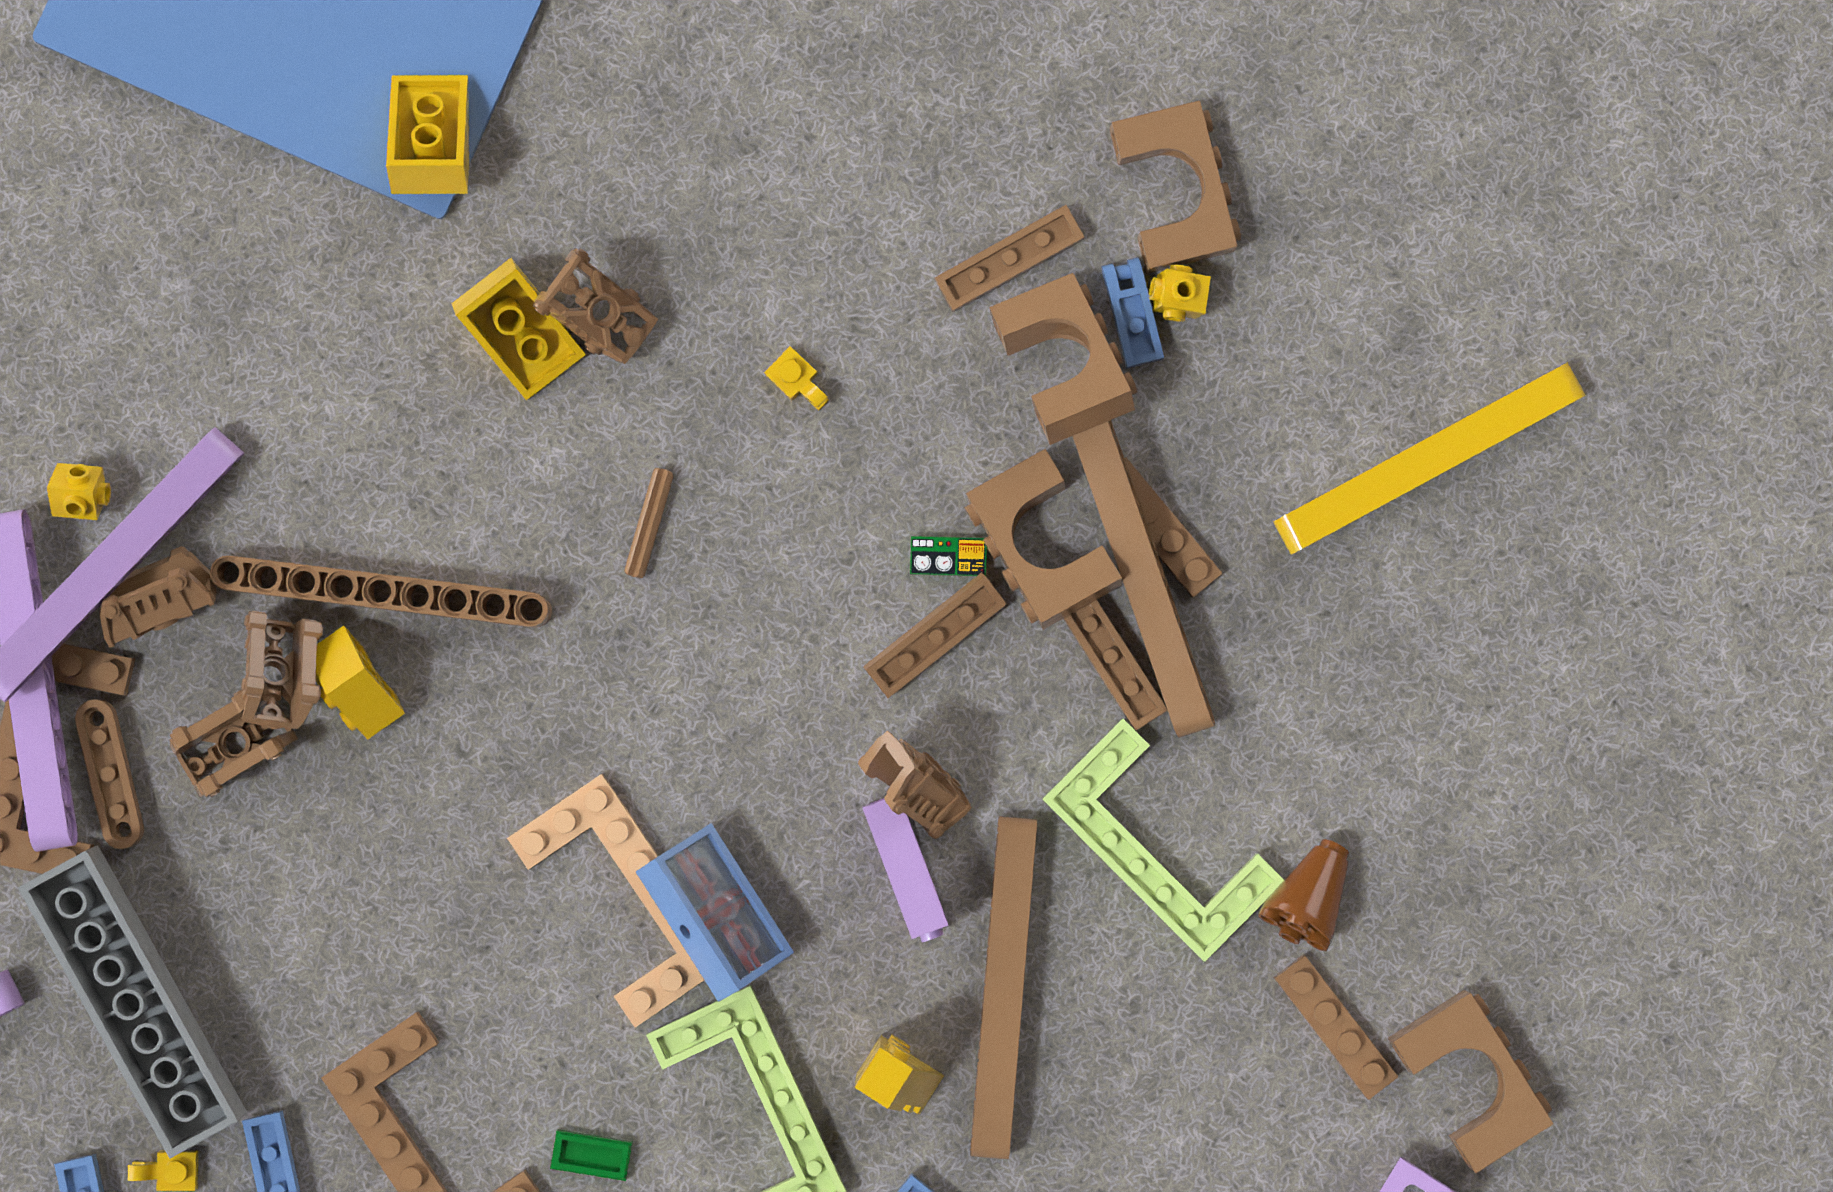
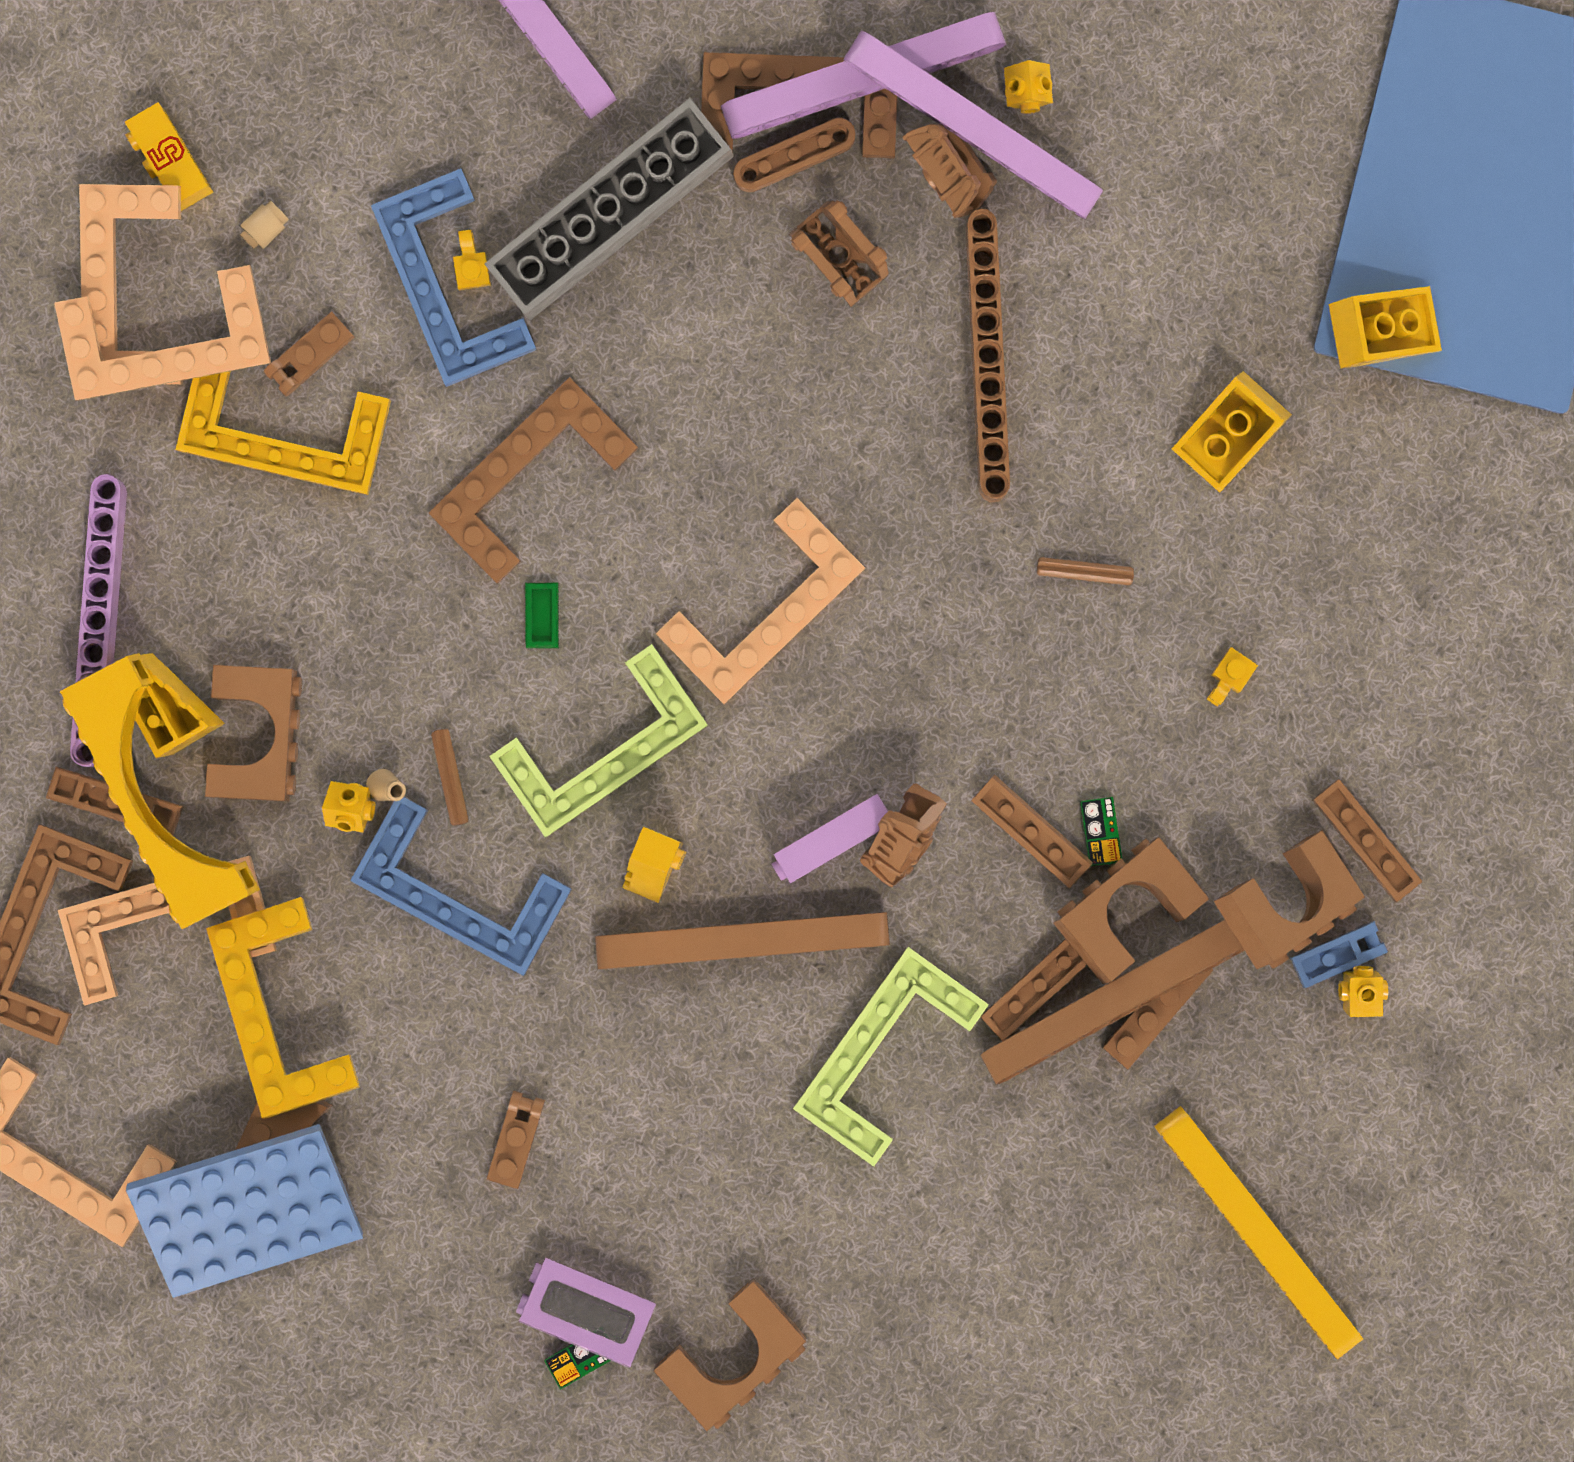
camera: 85 degrees right, 0 degrees up
(297, 670) = (909, 296): medium nougat piece -> none
(354, 684) = (905, 345): yellow brick -> none
(581, 319) = (1249, 483): medium nougat piece -> none
(714, 912) = (766, 683): brick -> none
(1184, 135) = (1501, 973): medium nougat arch -> none
(1310, 897) = (863, 1190): dark orange cone -> none
(1335, 1027) = (755, 1231): medium nougat plate -> none

